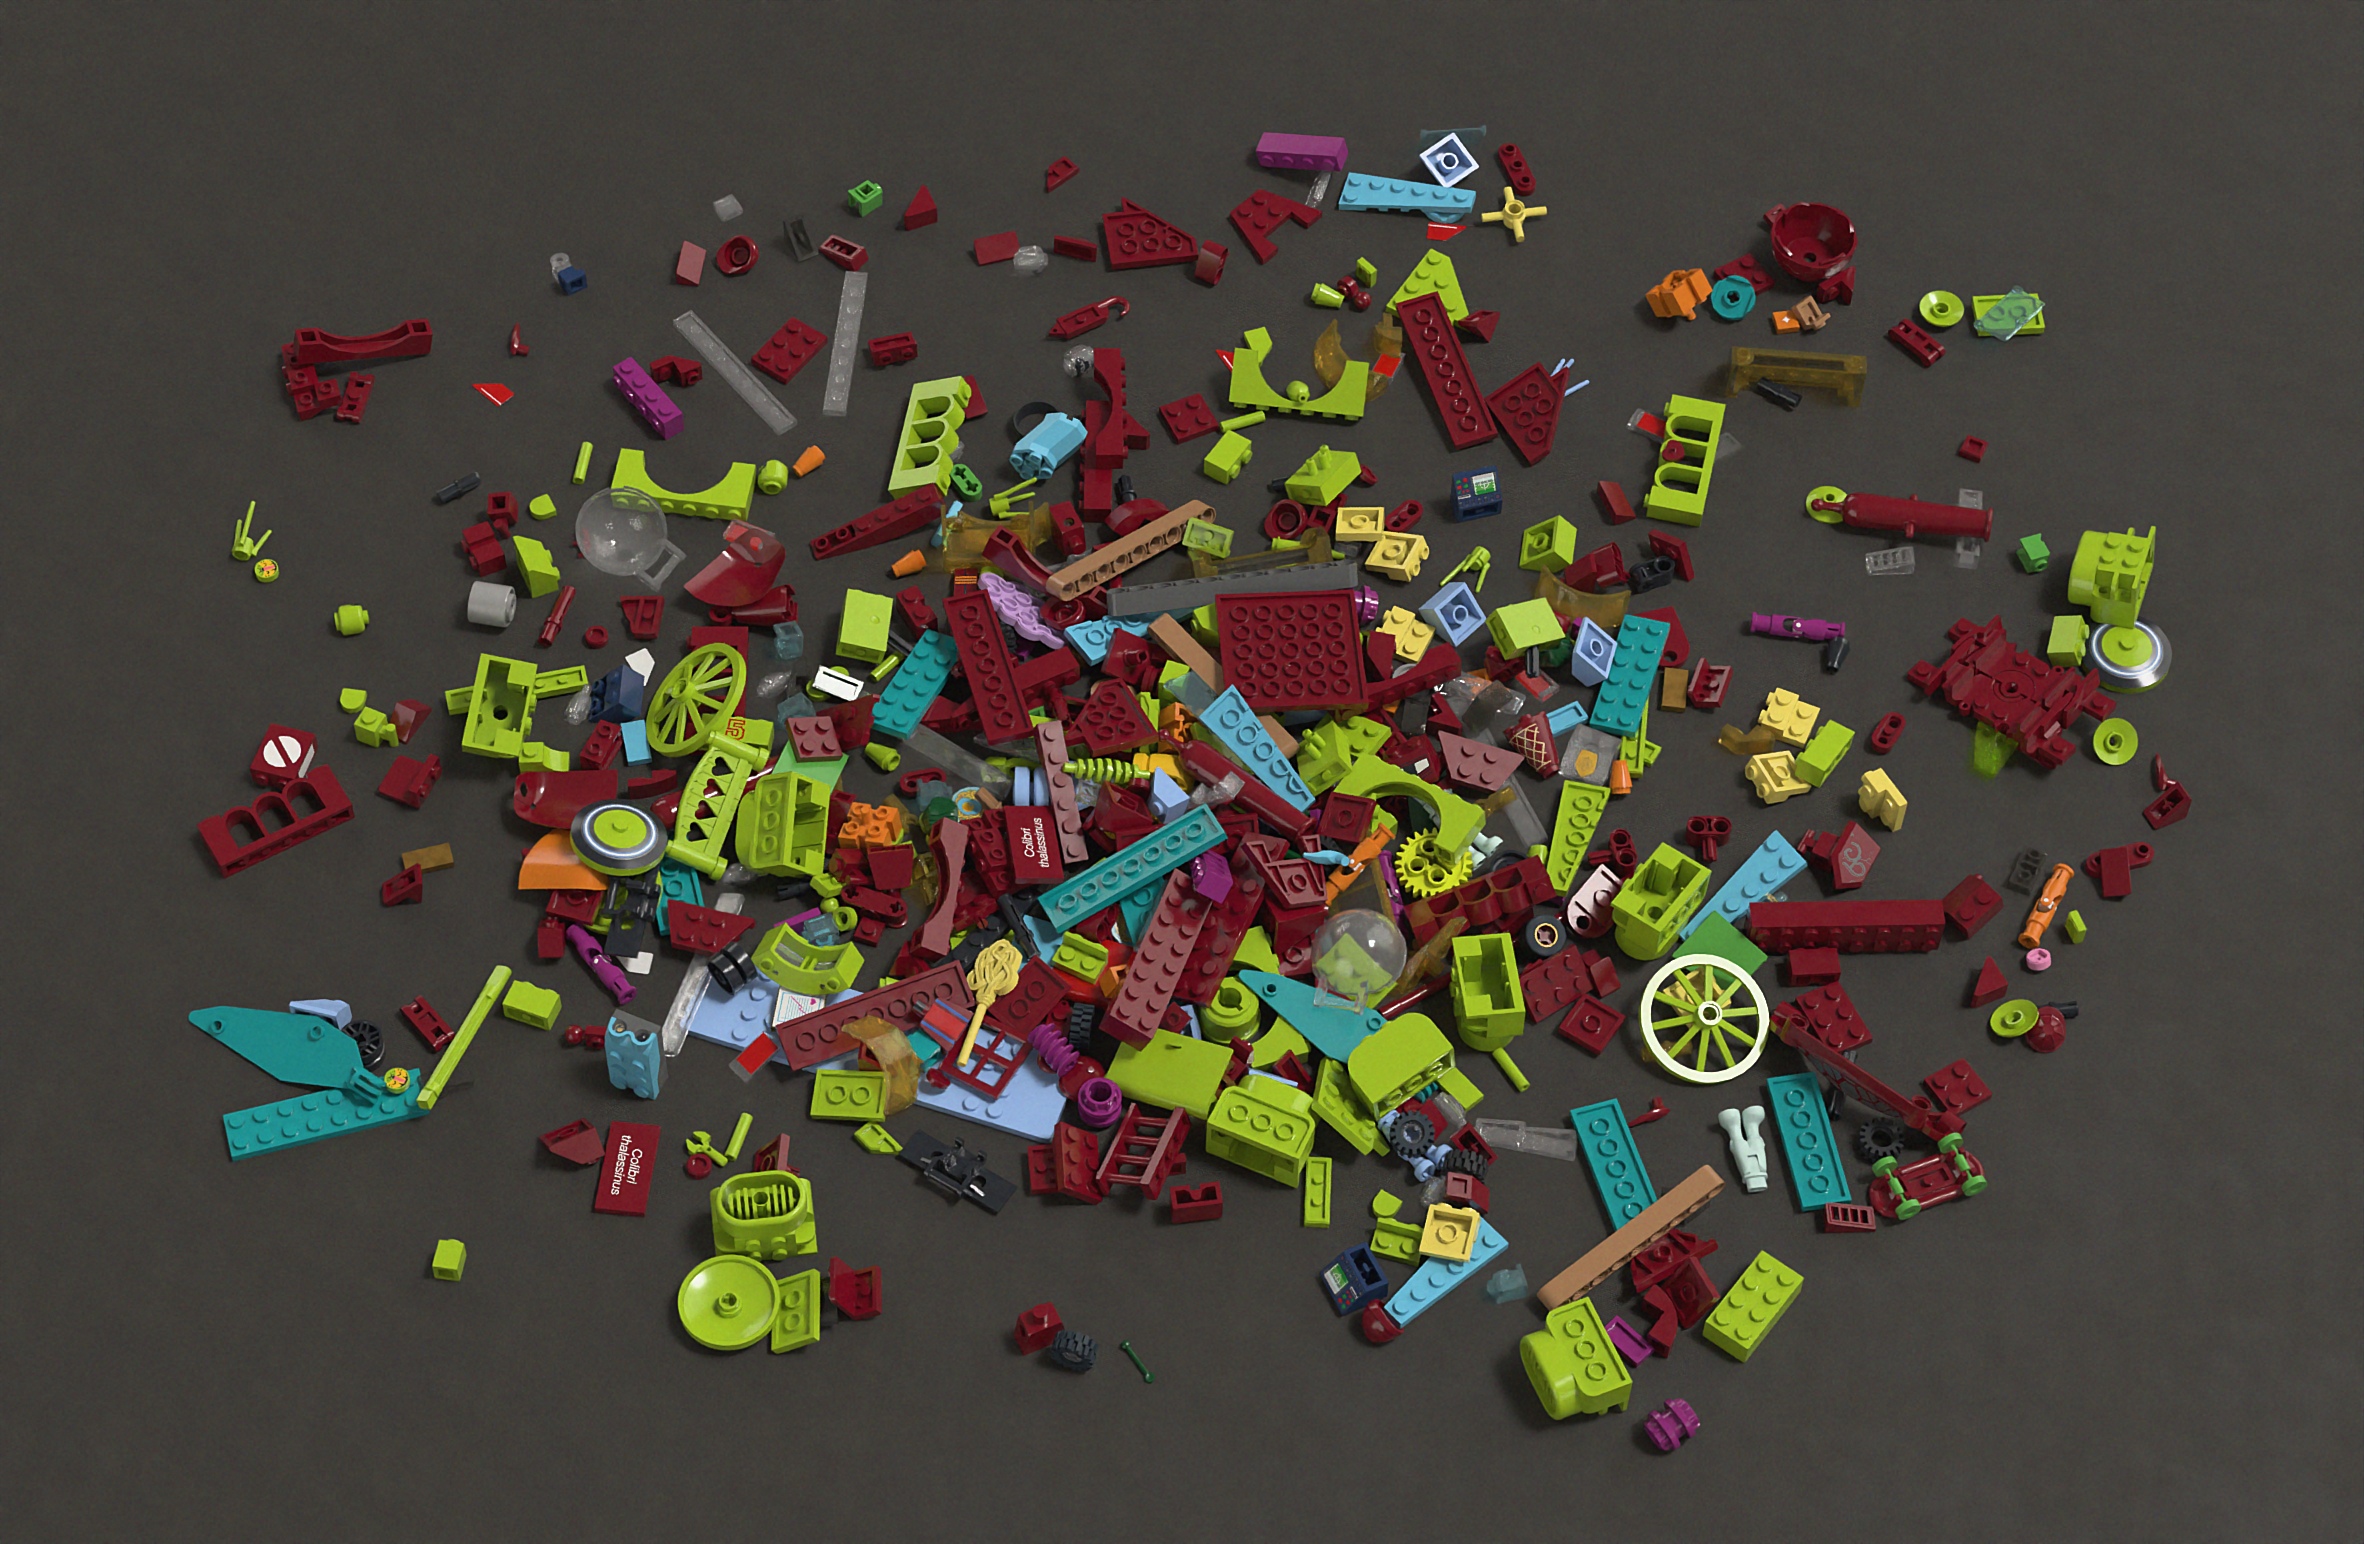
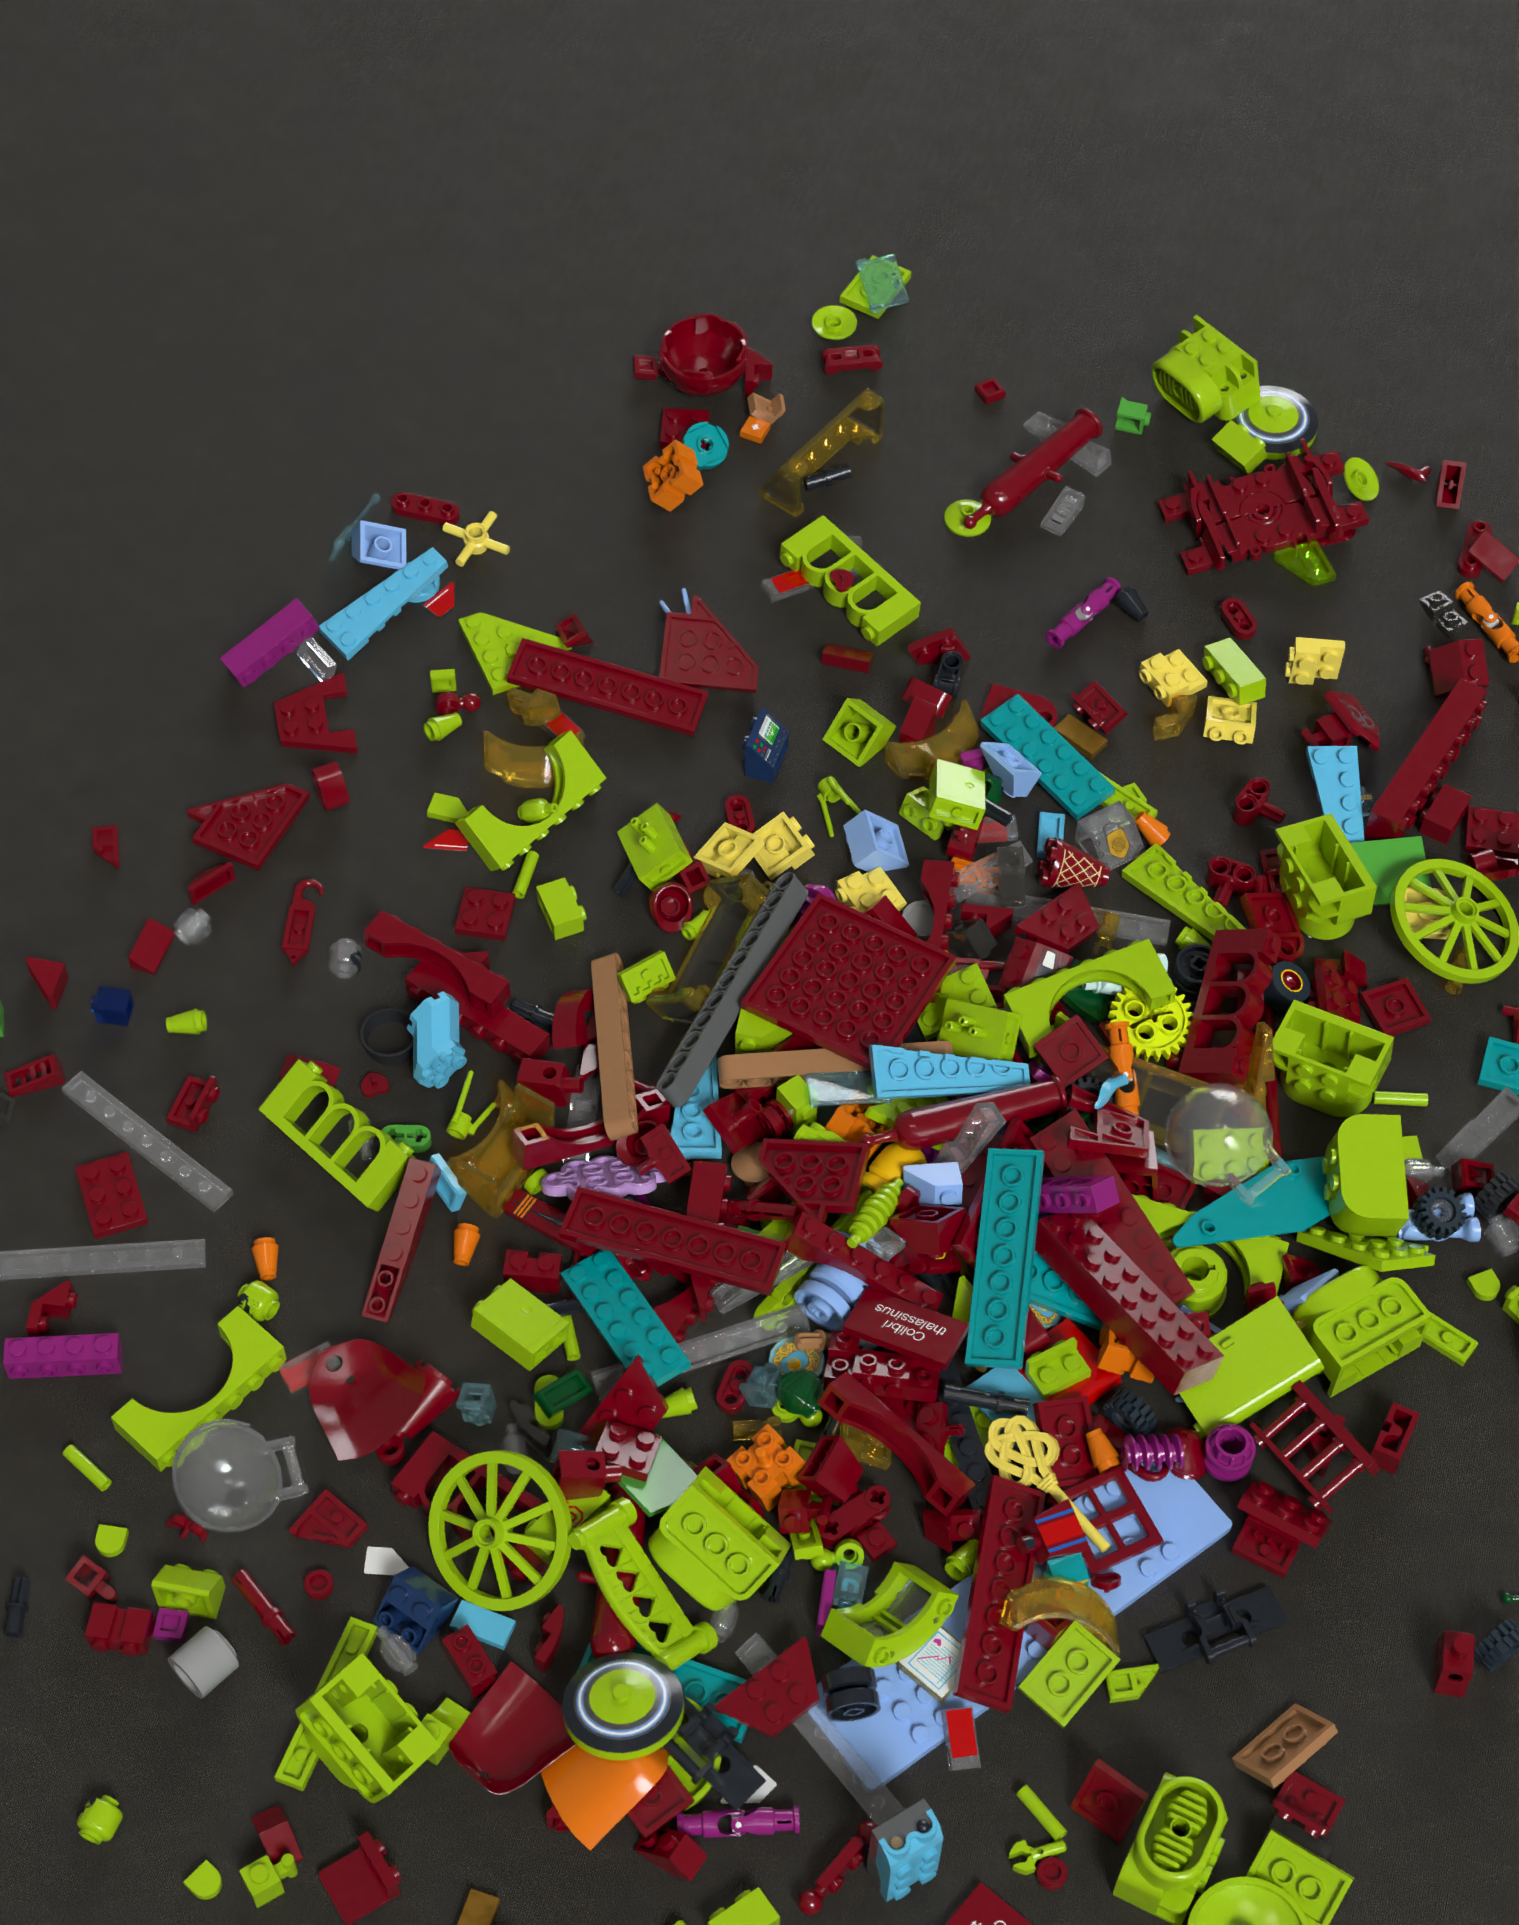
camera: 55 degrees left, 0 degrees up
(509, 575) = (171, 1625): none -> magenta tile
(762, 713) = (583, 1473): none -> dark red torso
(892, 1253) = (1284, 1745): none -> medium nougat plate
(931, 257) = (113, 1006): none -> clear blue brick
(955, 307) = (187, 1022): none -> lime cone
(994, 439) = (374, 1084): none -> dark red piece
(1038, 1017) = (1102, 1451): none -> orange cone
(1056, 625) = (663, 1155): none -> dark red plate

